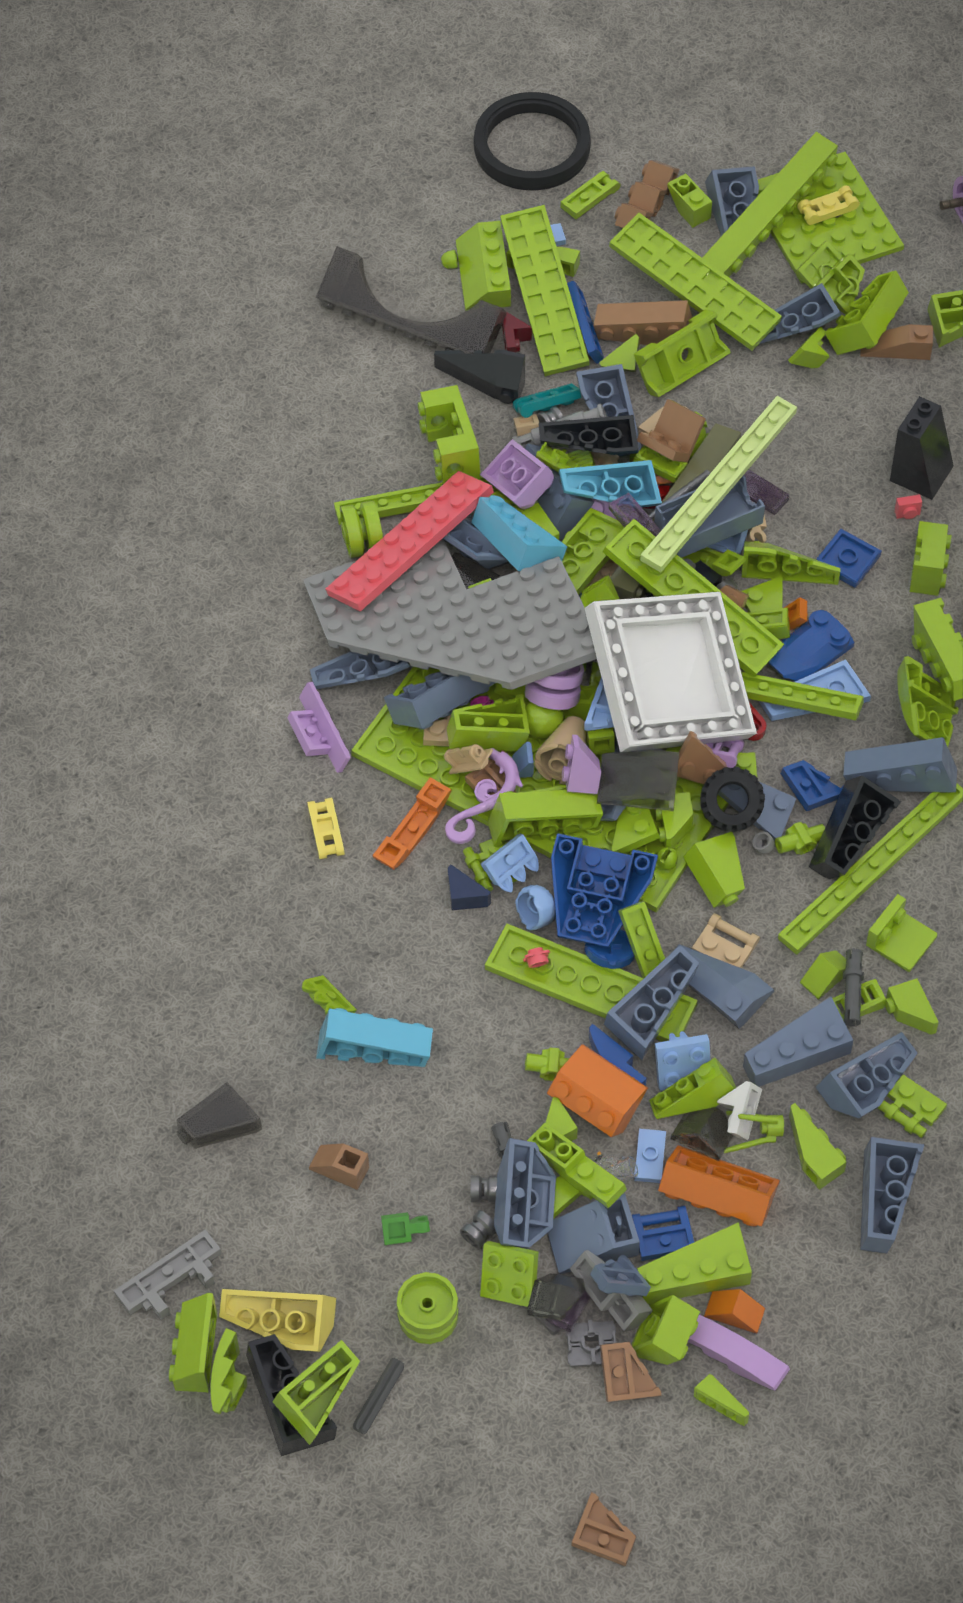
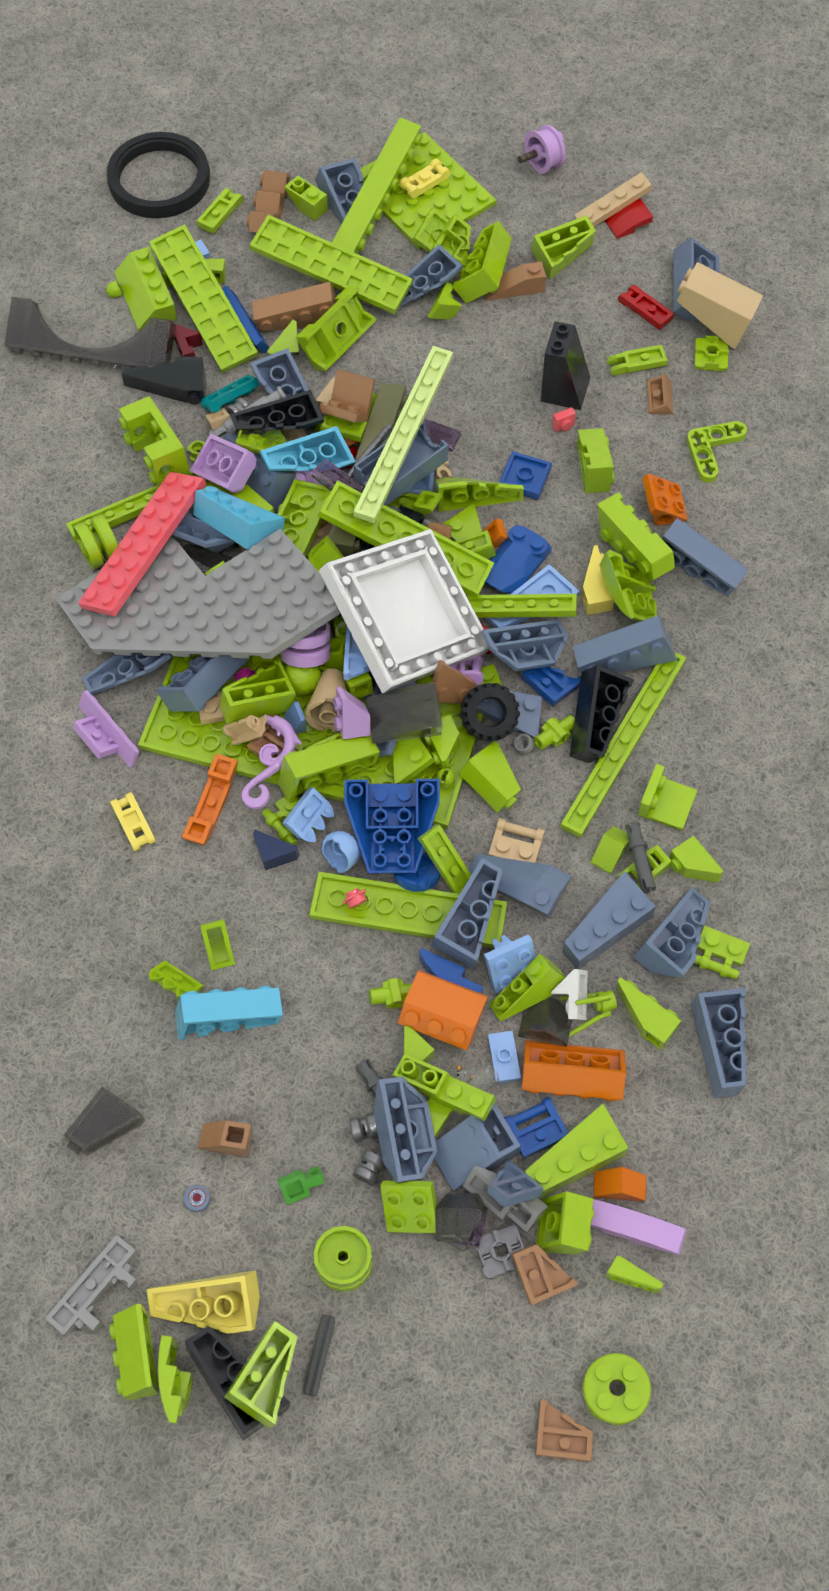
camera: 15 degrees left, 5 degrees up
(295, 1216) = (197, 1198): none -> sand blue tile
(381, 971) = (217, 944): none -> lime slope
(491, 451) = (193, 448): none -> lime plate
(671, 1521) = (605, 1405): none -> lime plate
(795, 738) = (527, 644): none -> sand blue wedge
(886, 698) = (594, 592): none -> light yellow slope

